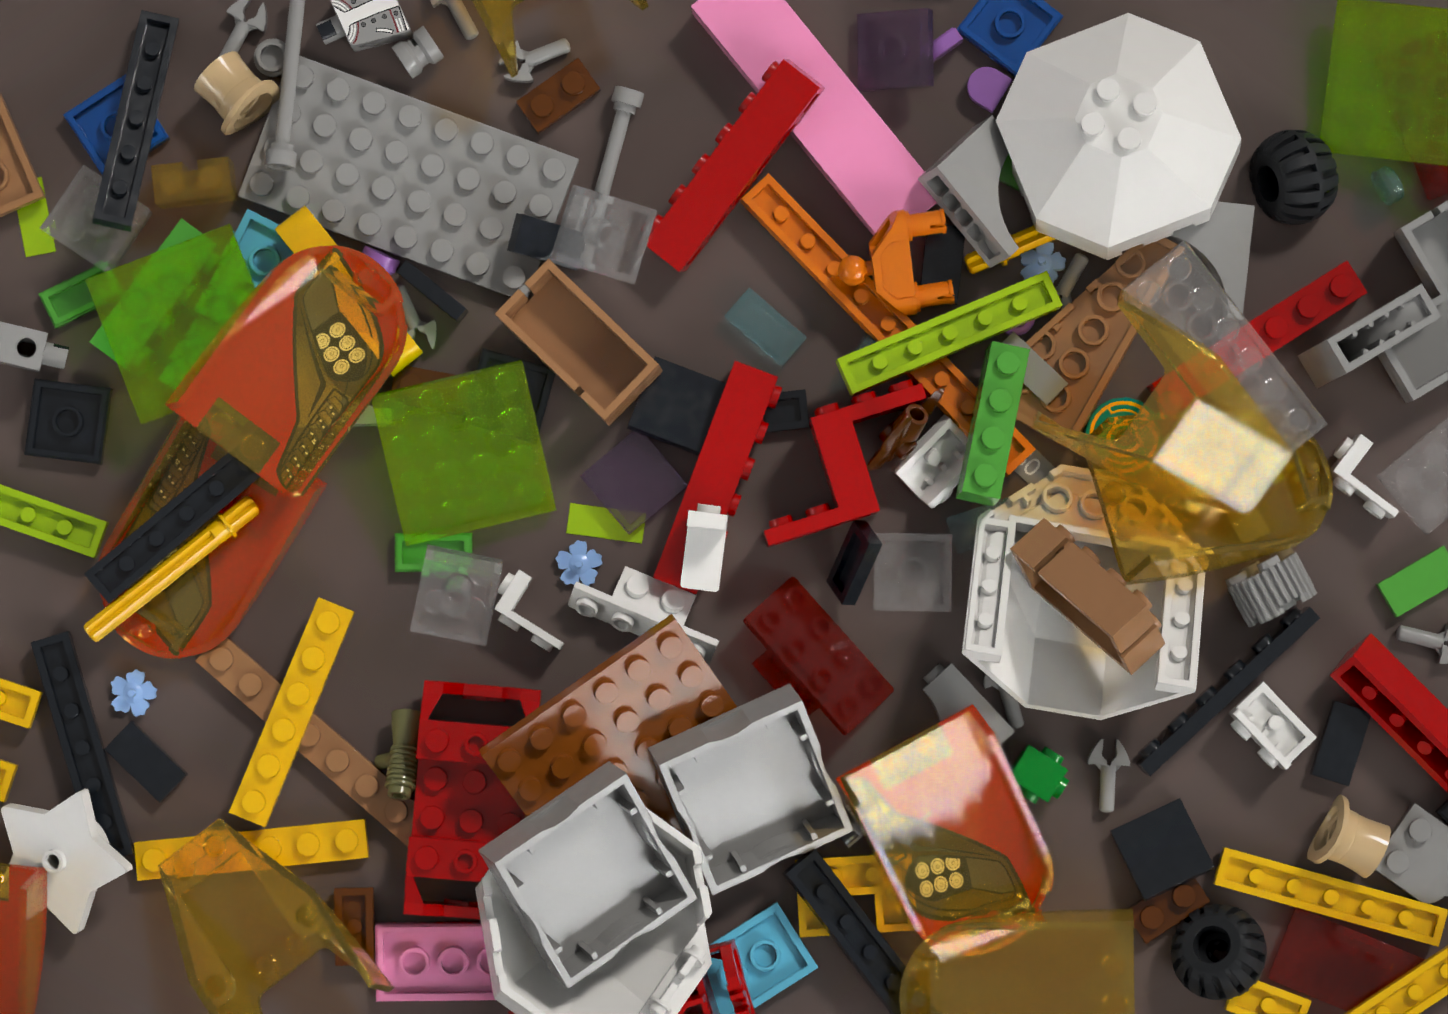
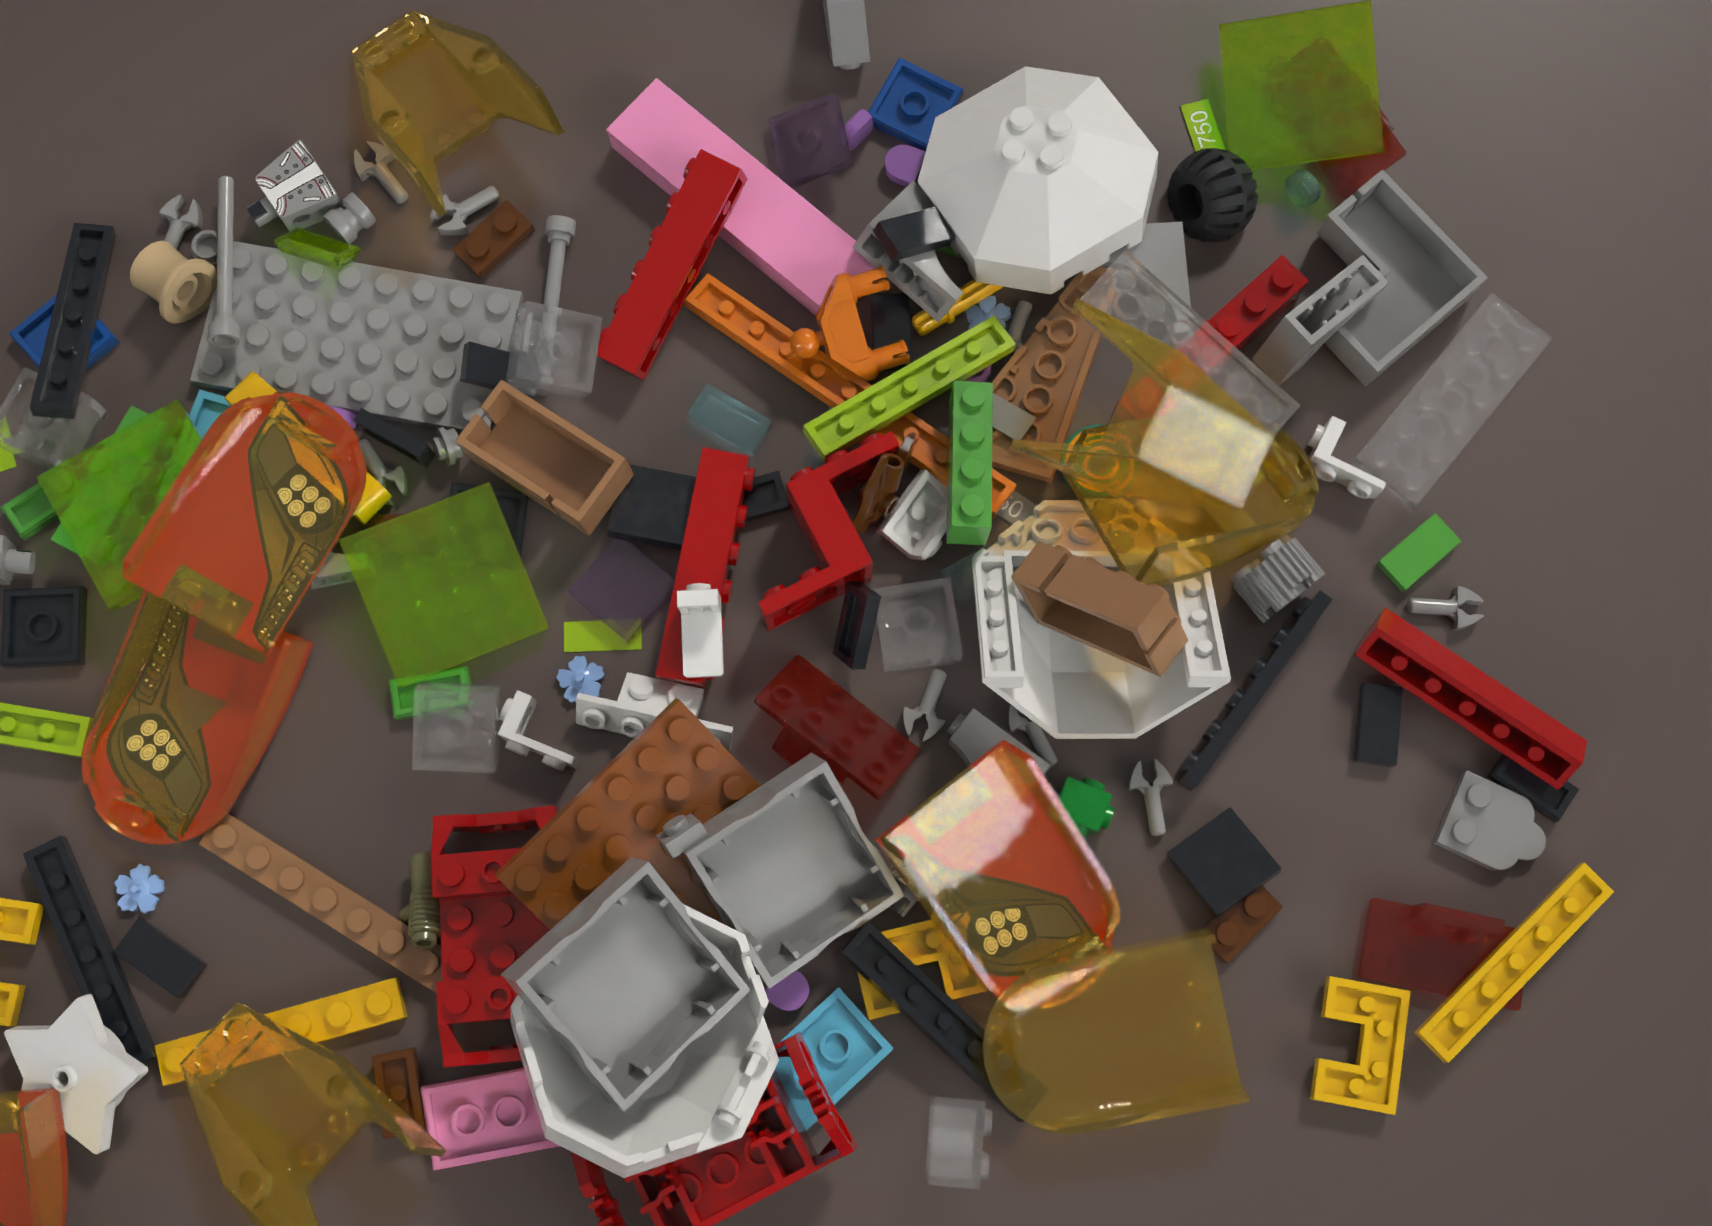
camera: 10 degrees left, 10 degrees down
(170, 527) = (151, 708): black plate -> none
(172, 568) = (157, 752): yellow axle -> none
(178, 187) = (152, 375): clear yellow brick -> none
(292, 712) = (302, 878): yellow plate -> none
(381, 79) = (317, 248): none -> clear neon green tile
(483, 308) = (446, 447): none -> light grey plate
(656, 744) = (681, 834): none -> light grey plate
(731, 900) = (790, 992): none -> medium lavender tile
(908, 649) = (927, 707): none -> light grey bar
(980, 181) = (913, 233): none -> black tile
(1218, 928) = (1294, 935): black wheel -> none
(1271, 726) = (1306, 718): white bracket -> none
(1302, 99) = (1202, 125): none -> lime sticker
(1330, 896) = (1404, 880): yellow plate -> none
(1349, 839) = (1412, 816): tan piece -> none

